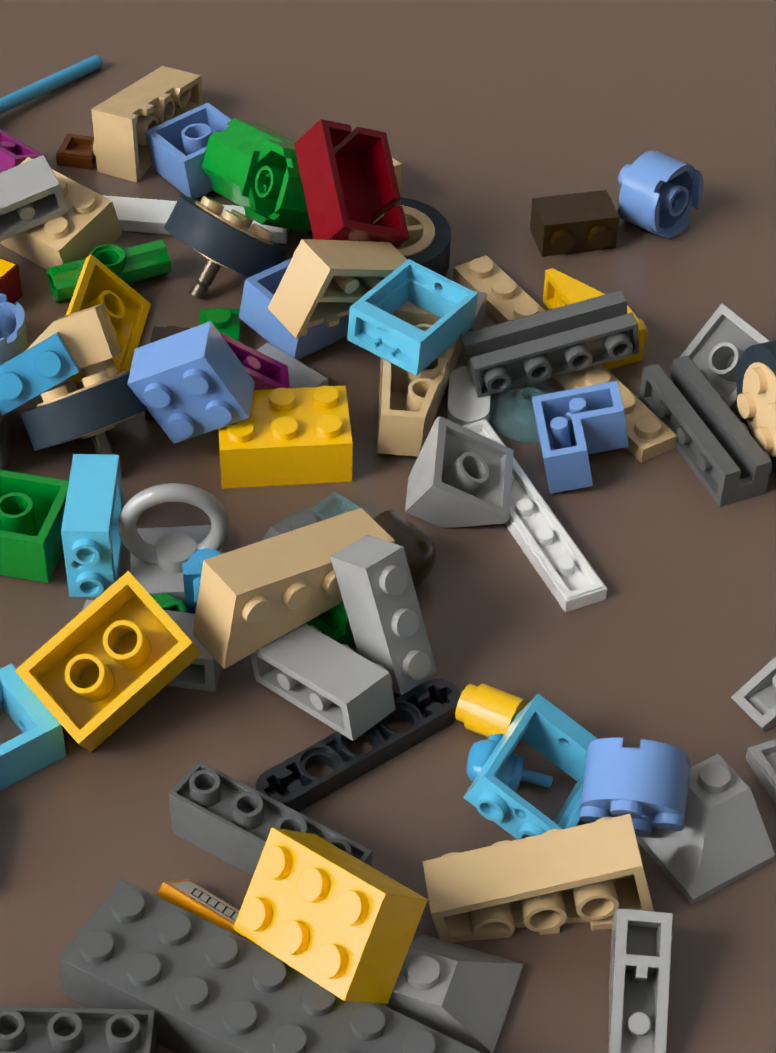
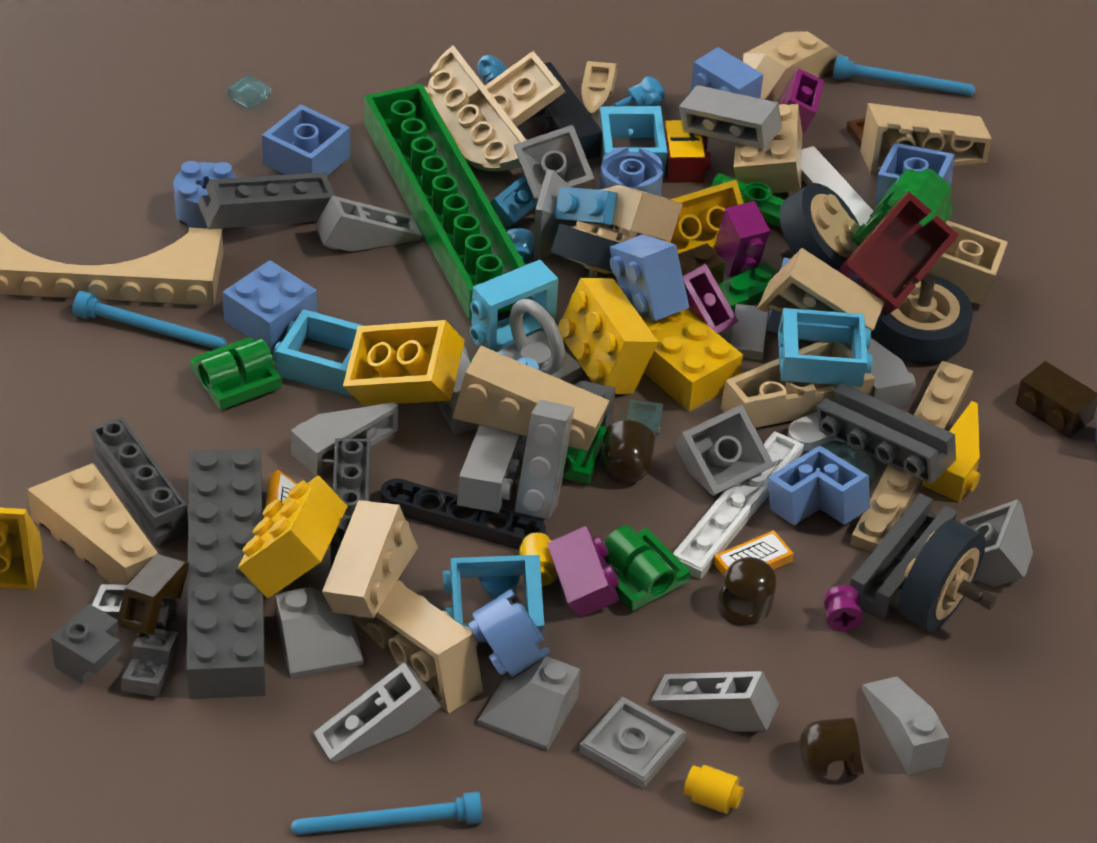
camera: 55 degrees right, 0 degrees up
(137, 801) = (315, 439): none -> light grey slope
(172, 294) = (741, 238): none -> magenta brick
(231, 460) = (607, 335): none -> yellow brick
(434, 855) = (369, 559): none -> tan wedge
(562, 675) = (583, 571): none -> brick
(569, 636) = (643, 566): none -> green plate
(614, 540) = (766, 547): none -> tile
(674, 550) = (752, 581): none -> dark brown helmet
(743, 508) = (842, 608): none -> magenta wheel

